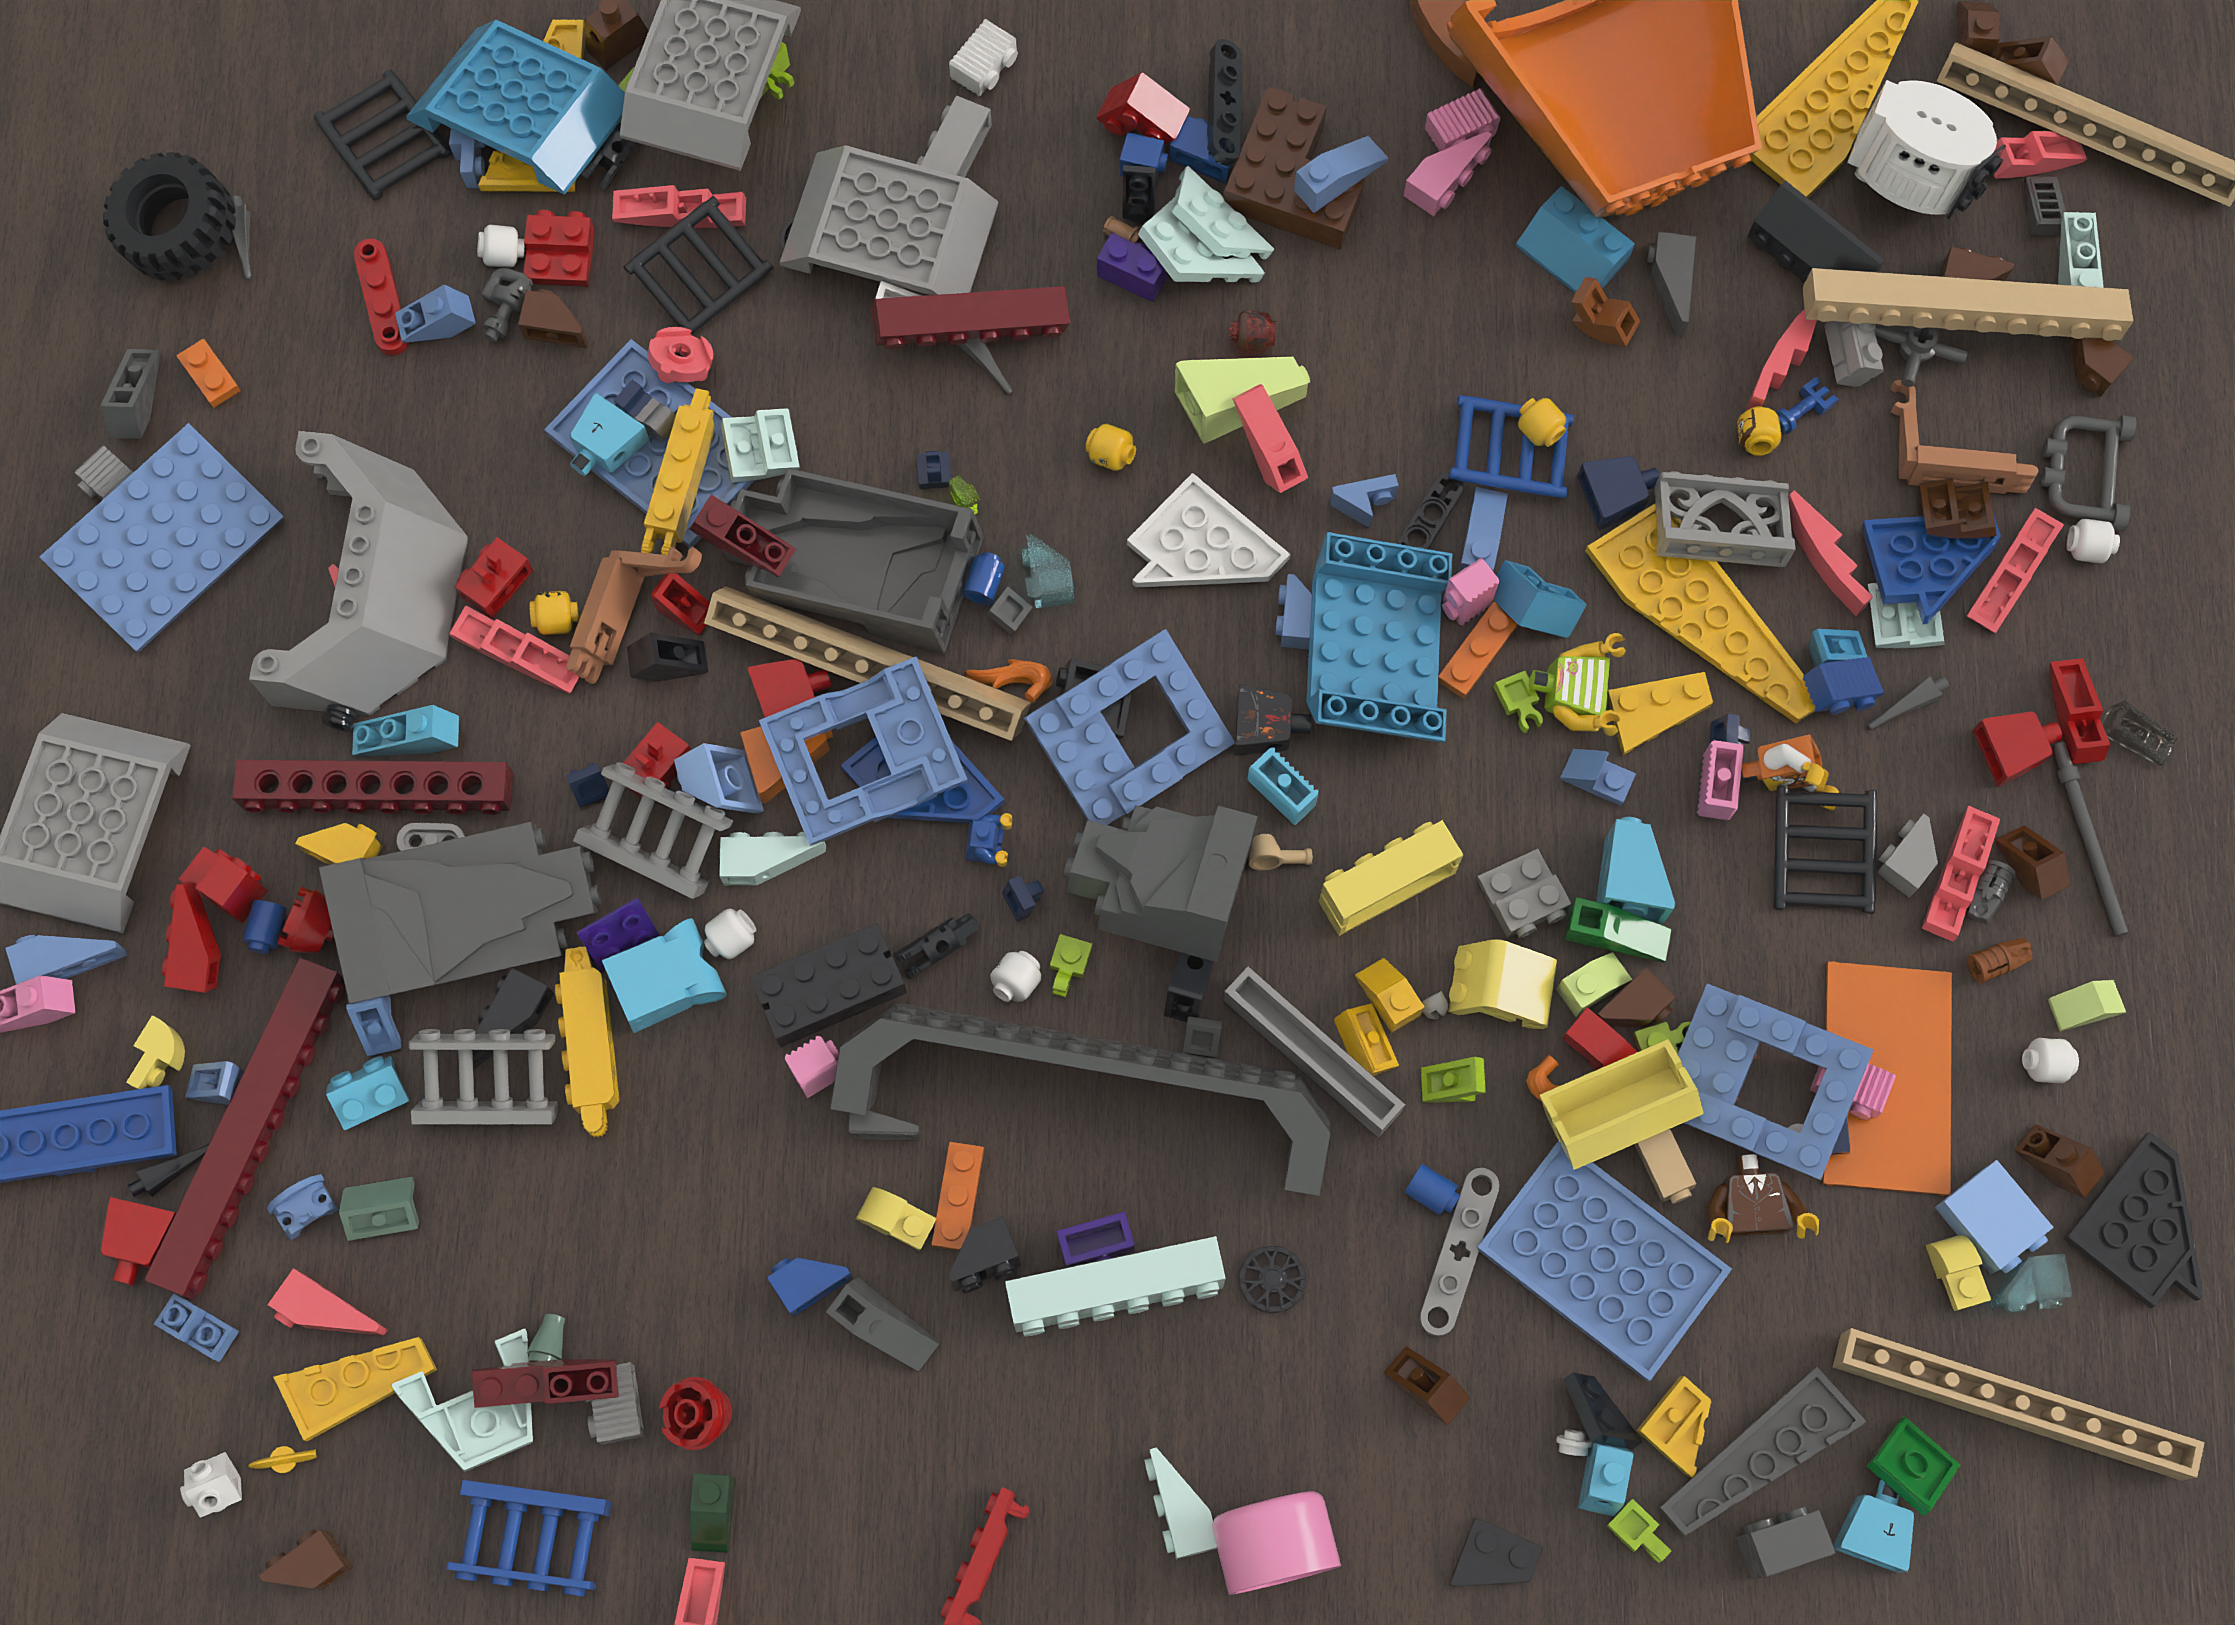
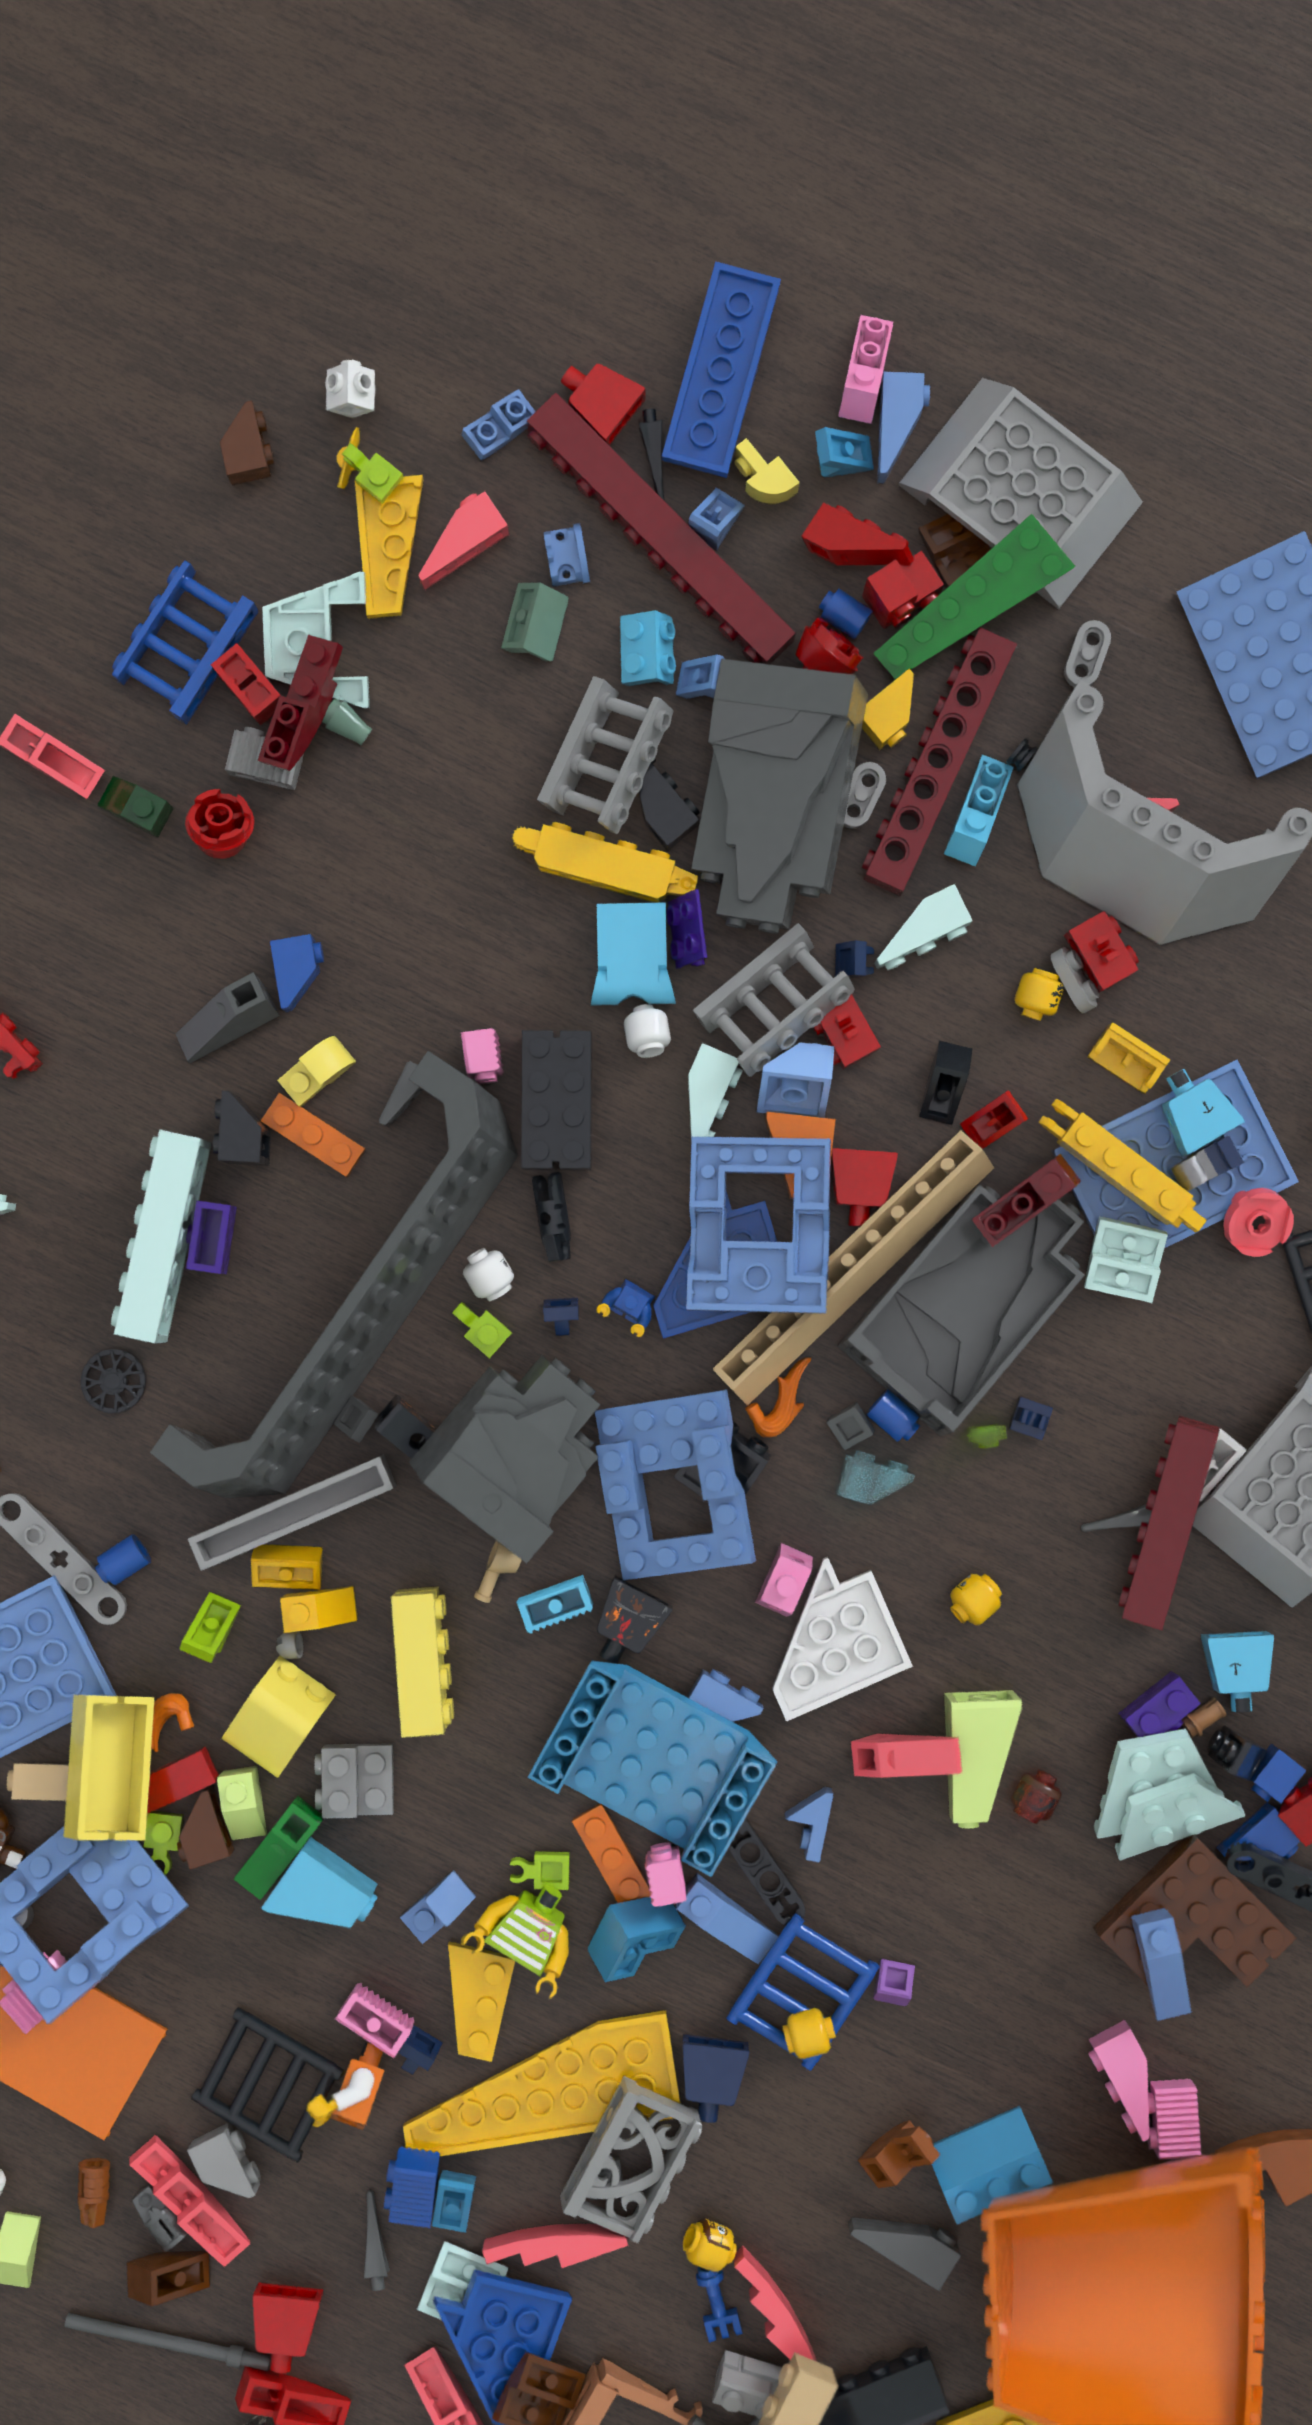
camera: 115 degrees right, 15 degrees up
(110, 995) = (843, 452): none -> dark azure slope
(167, 852) = (952, 547): none -> reddish brown slope
(186, 798) = (999, 580): none -> green wing
(225, 701) = (1086, 655): none -> light grey plate
(289, 1418) = (375, 475): none -> lime plate
(514, 649) = (1018, 946): coral slope -> none
(527, 734) = (932, 920): none -> light aqua slope
(536, 578) = (1081, 991): none -> light grey plate
(546, 1450) = (247, 683): none -> red brick
(580, 518) = (1128, 1058): none -> yellow hinge
(612, 603) = (1021, 1051): nougat hinge -> none
(1065, 222) = (1239, 1664): none -> medium azure torso
(1170, 604) = (785, 1580): none -> bright pink torso
(1466, 380) = (894, 1982): none -> medium lavender slope

